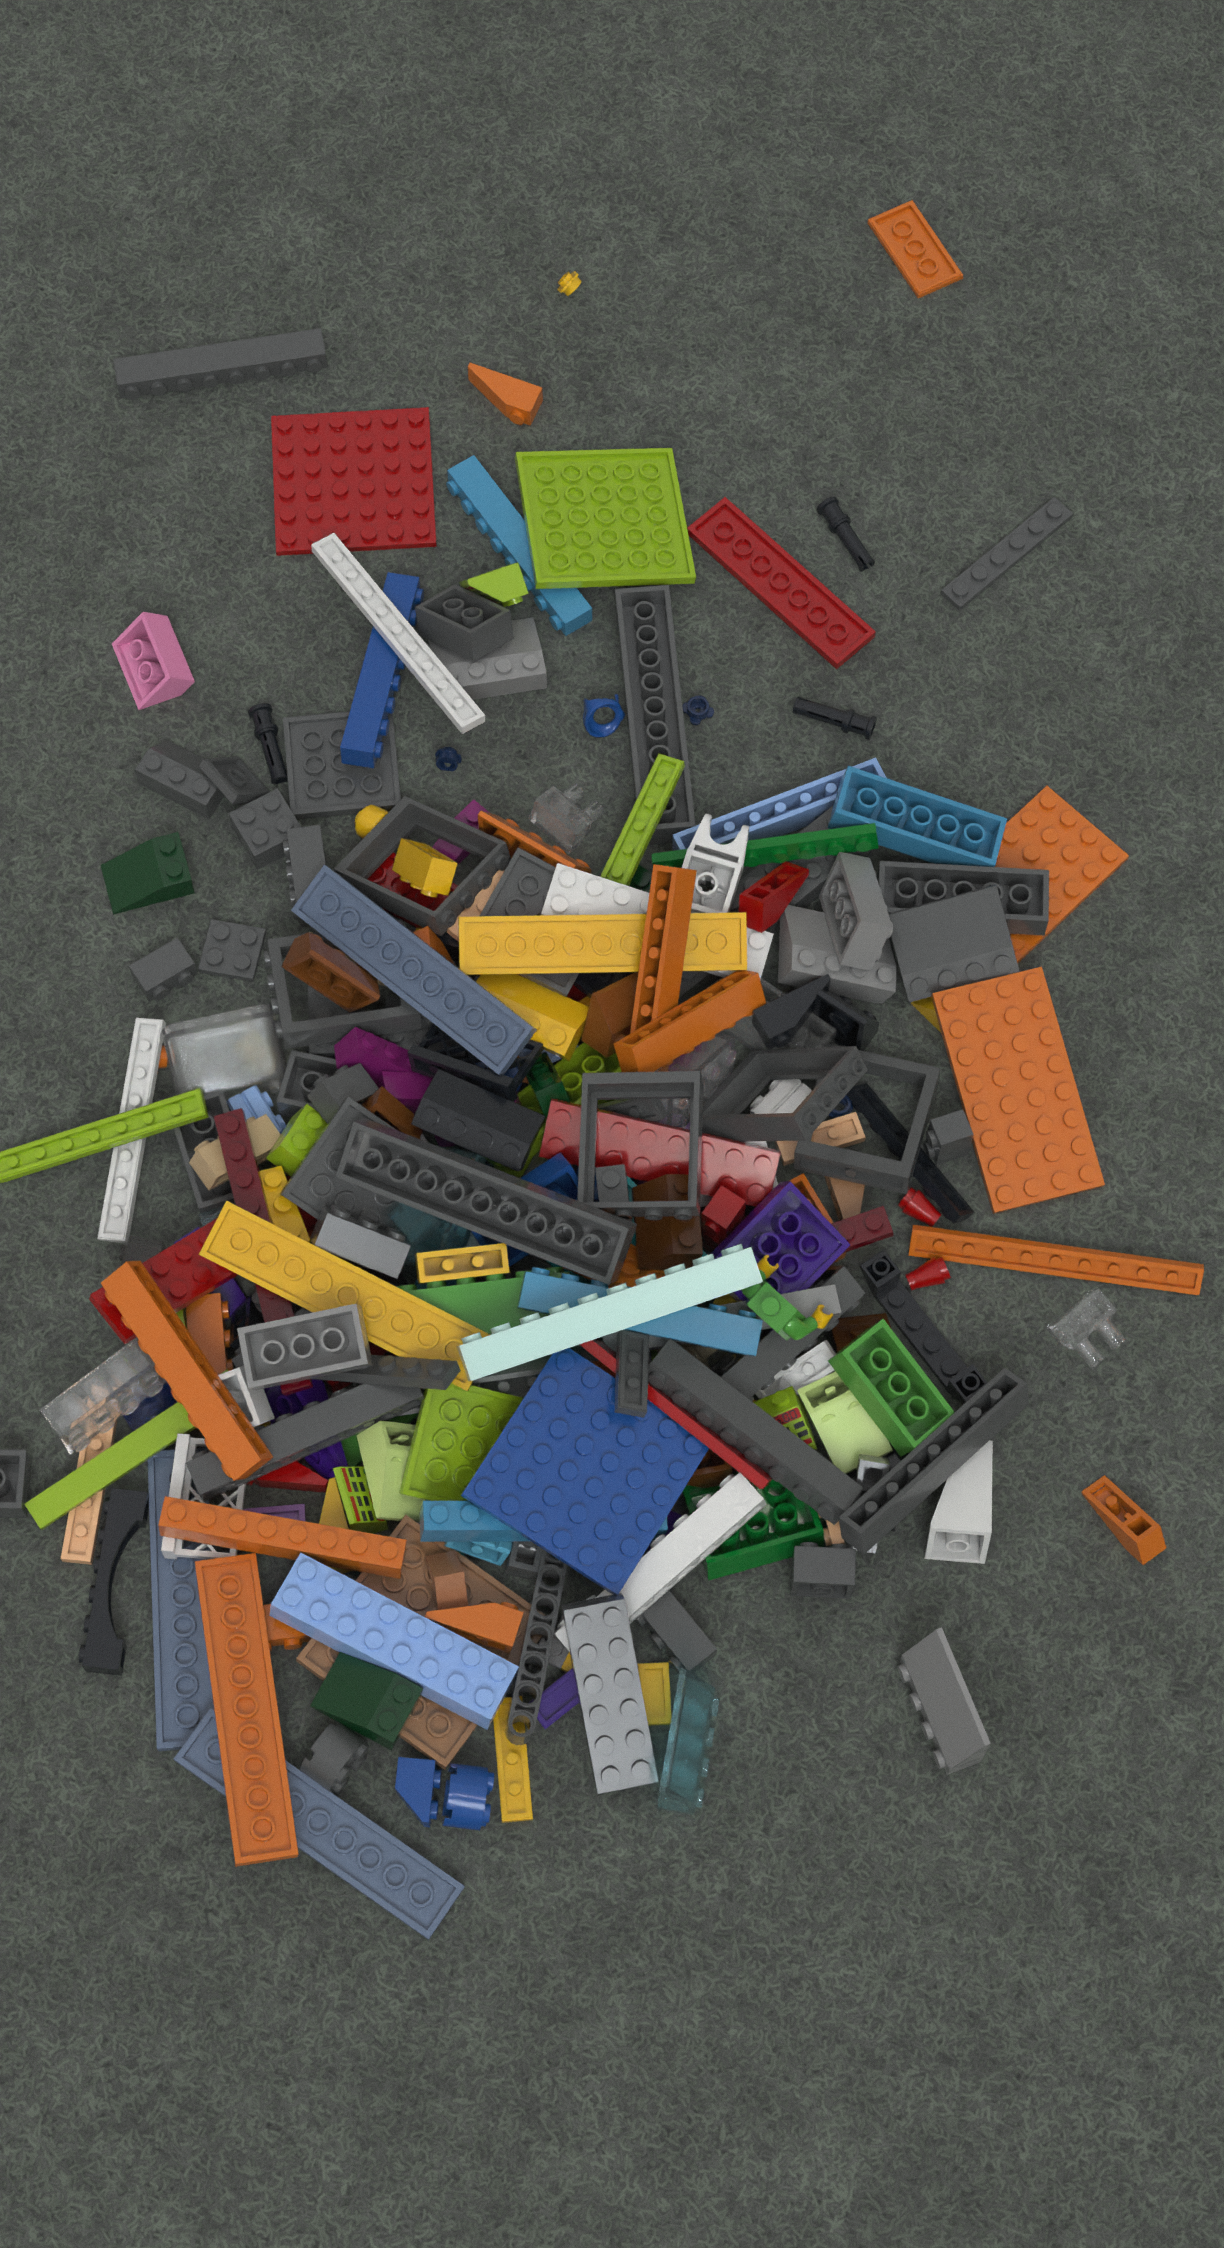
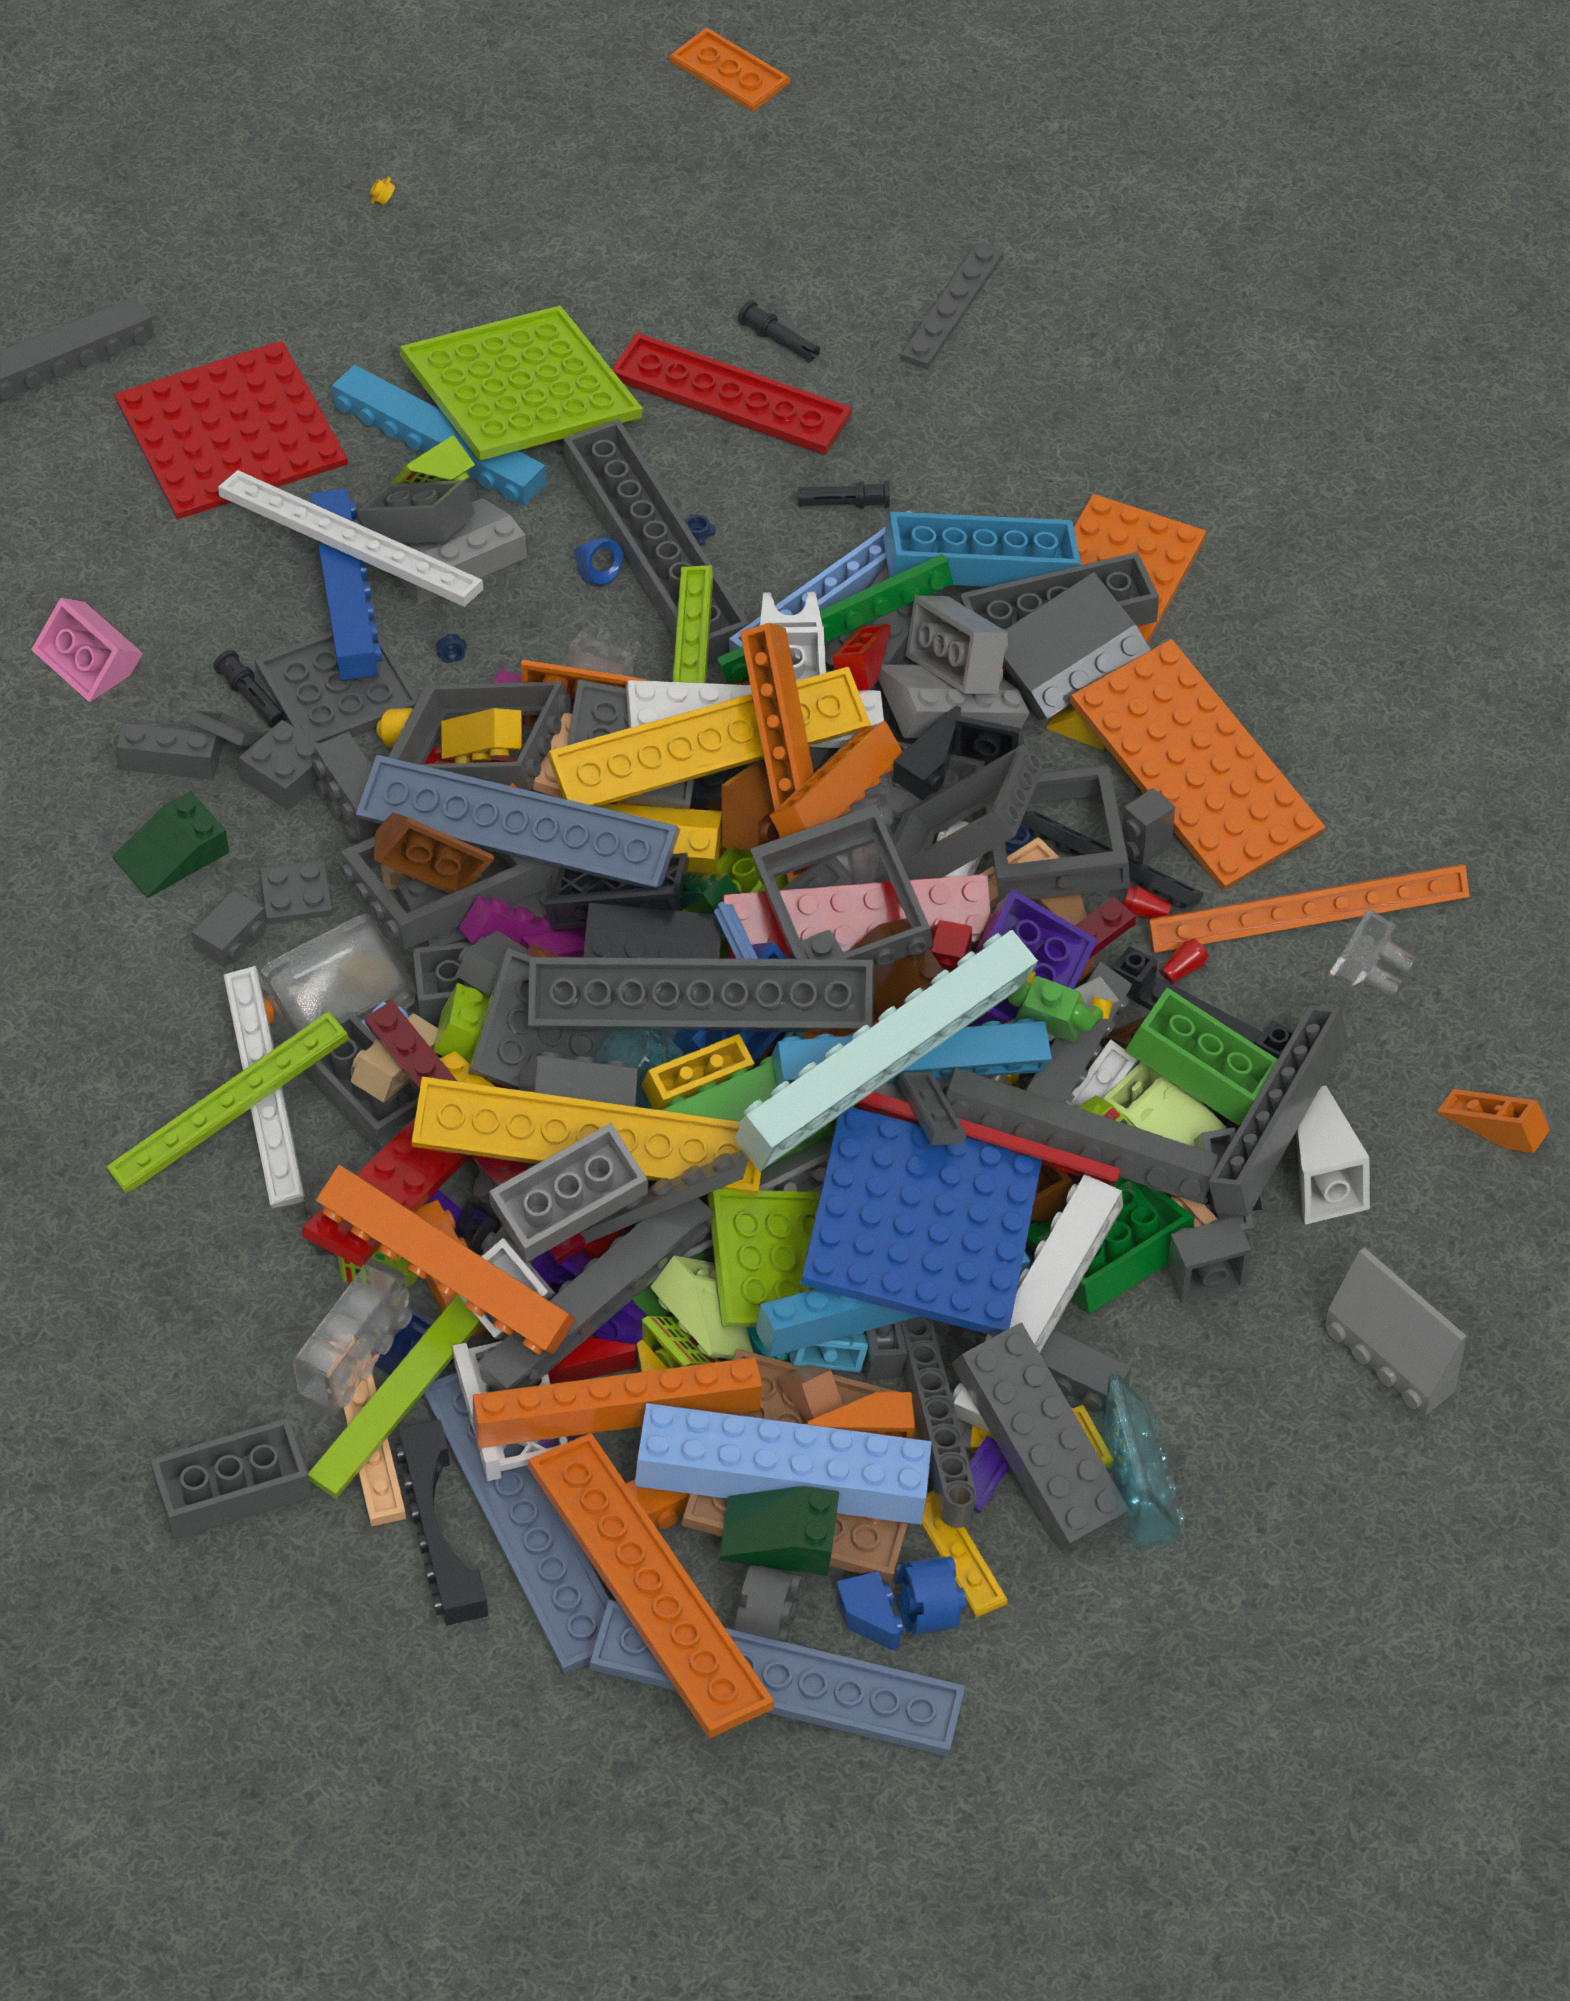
camera: 20 degrees left, 15 degrees down
(512, 396) = (364, 305): orange slope -> none
(543, 1147) = (734, 932): none -> medium blue axle

